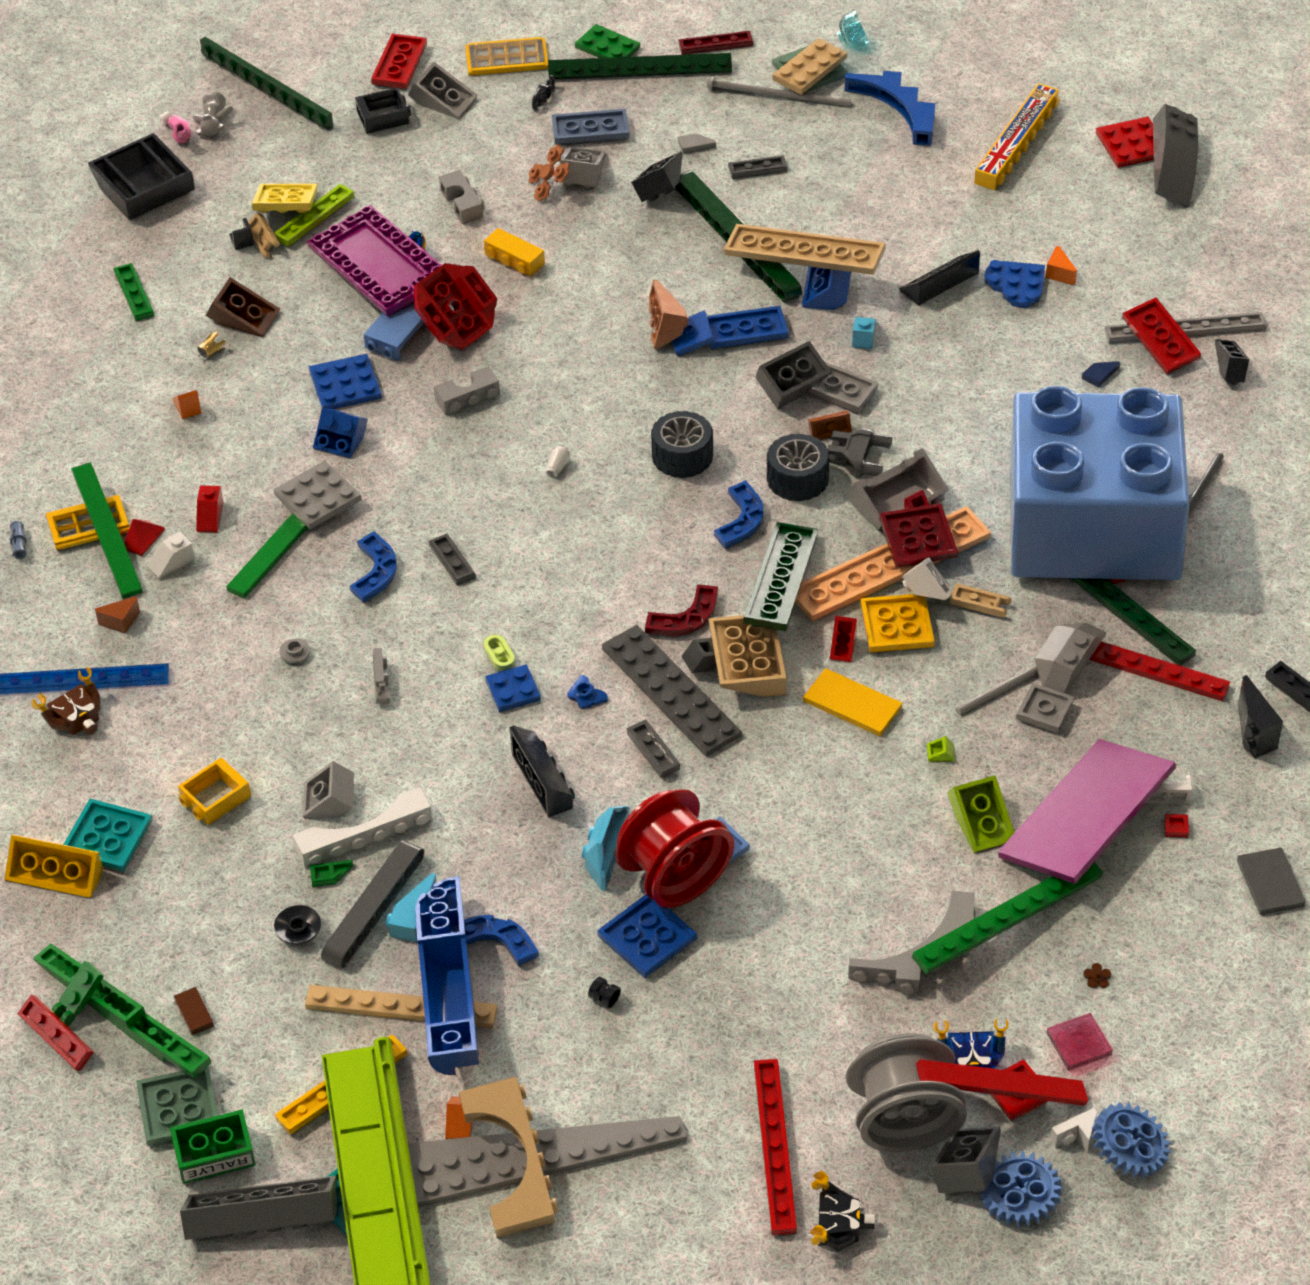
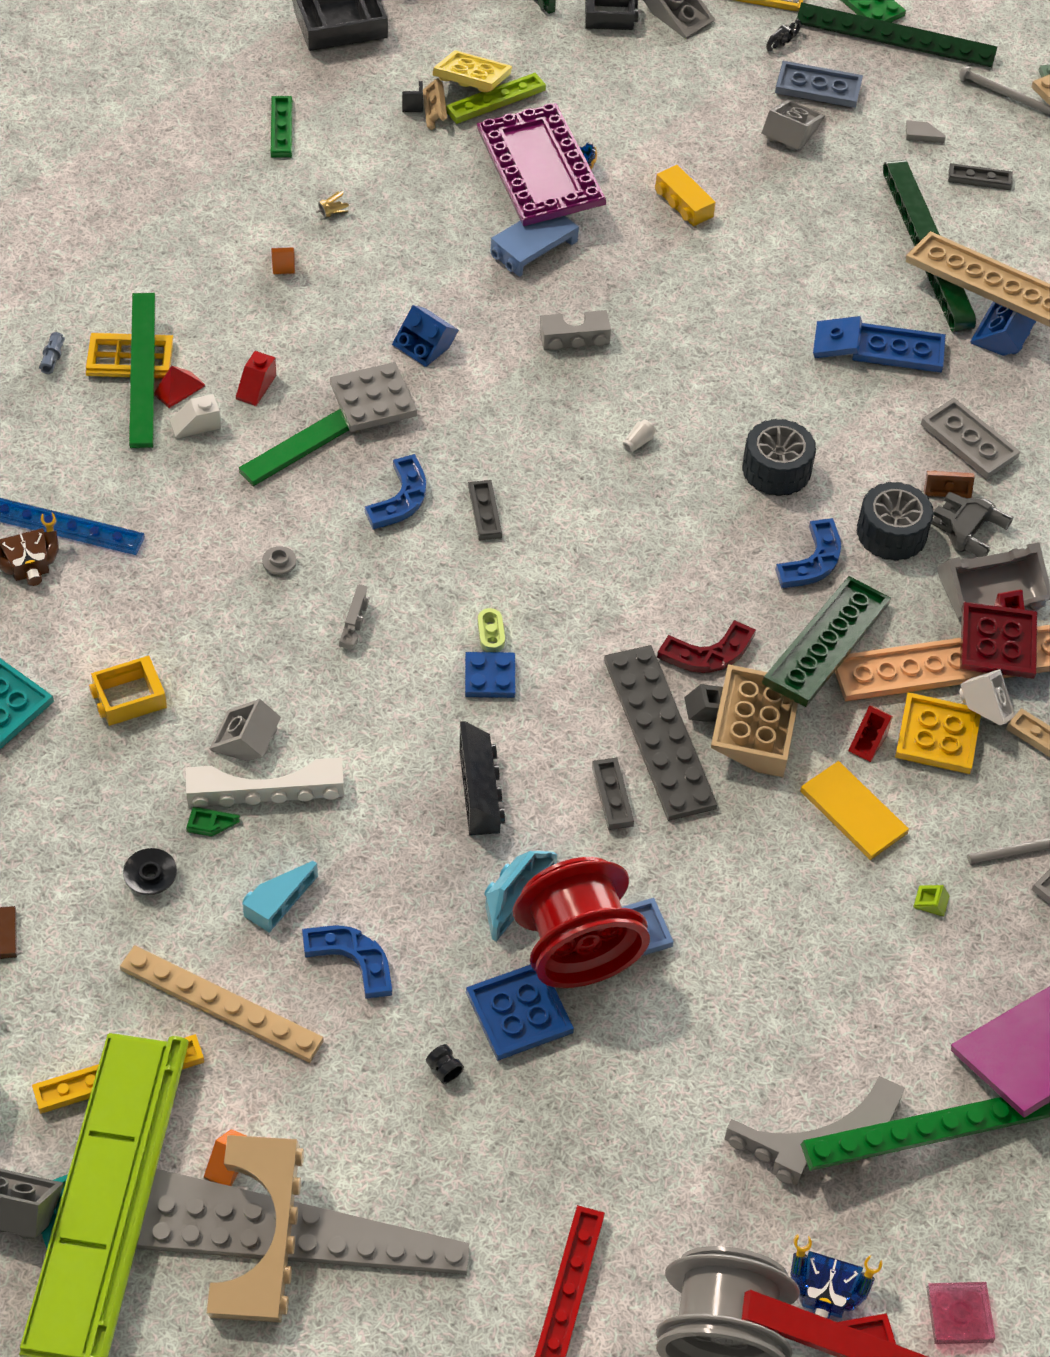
camera: 15 degrees right, 5 degrees up
(119, 614) = (117, 464): dark orange slope -> none
(242, 309) = (380, 175): reddish brown slope -> none
(345, 382) = (453, 283): blue plate -> none
(371, 904) = (238, 874): dark grey beam -> none
(446, 978) = (274, 993): blue slope -> none
(466, 203) = (656, 129): light grey arch -> none
(466, 293) = (615, 228): red piece -> none
(547, 171) = (751, 119): nougat plant -> none
(585, 693) = (565, 706): blue animal -> none
(659, 178) = (868, 159): black slope -> none
(667, 316) = (818, 311): nougat wedge -> none
(715, 42) = (986, 31): dark red tile -> none
(792, 374) = (928, 414): dark grey slope -> none
(863, 332) = (1025, 390): medium azure slope -> none
(981, 813) = (950, 992): lime slope -> none
(1097, 976) = (1011, 1236): reddish brown plant -> none

